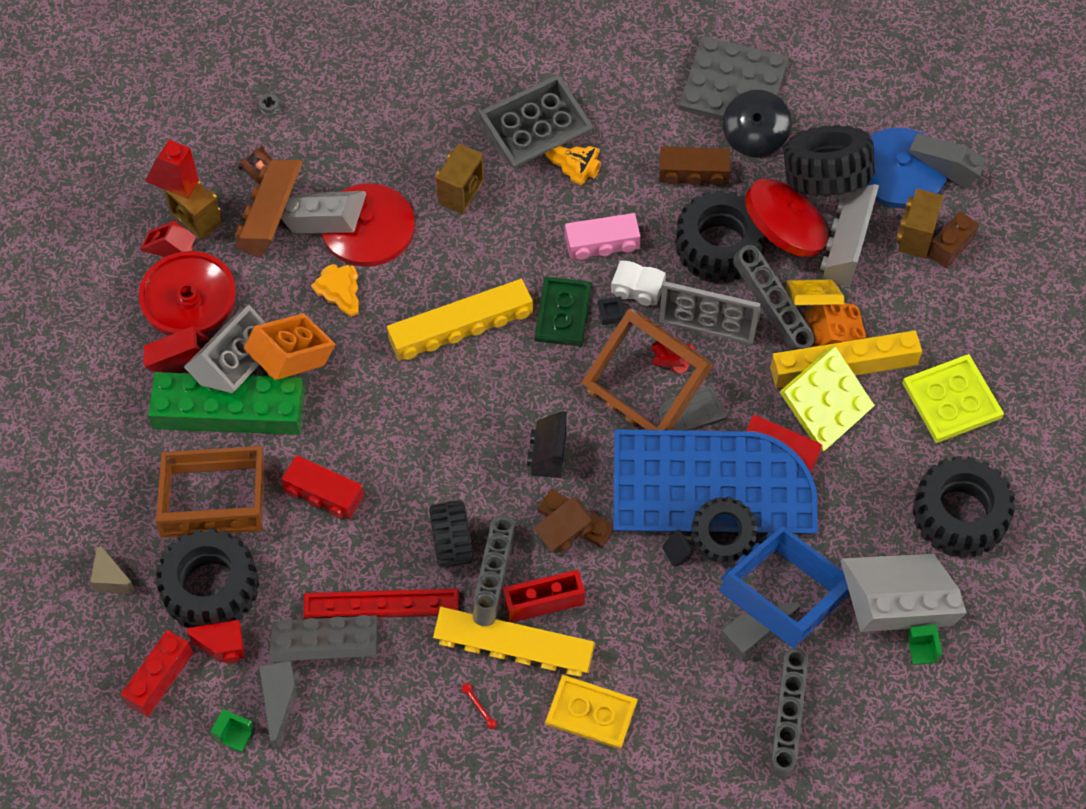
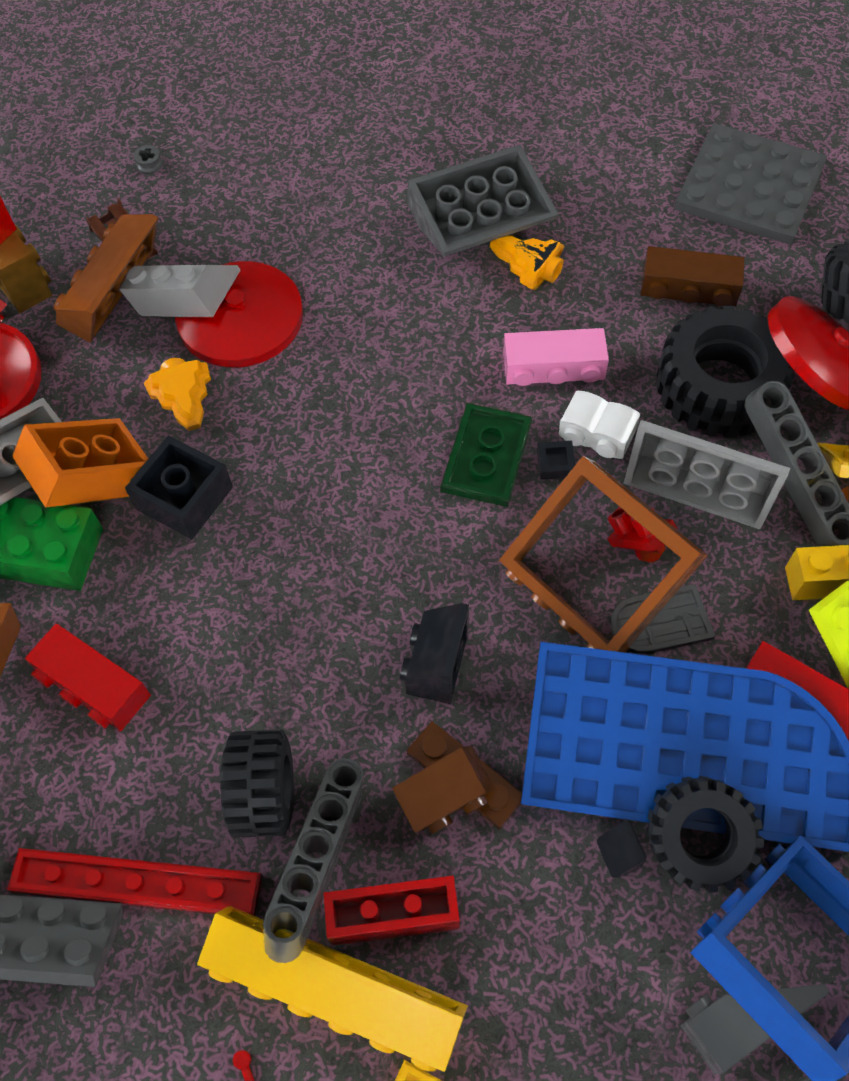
camera: 10 degrees right, 0 degrees up
(356, 357) = (179, 487): none -> black brick
(460, 178) = (369, 262): pearl gold brick -> none
(460, 320) = (337, 450): yellow brick -> none
(760, 137) = (781, 247): black dish -> none

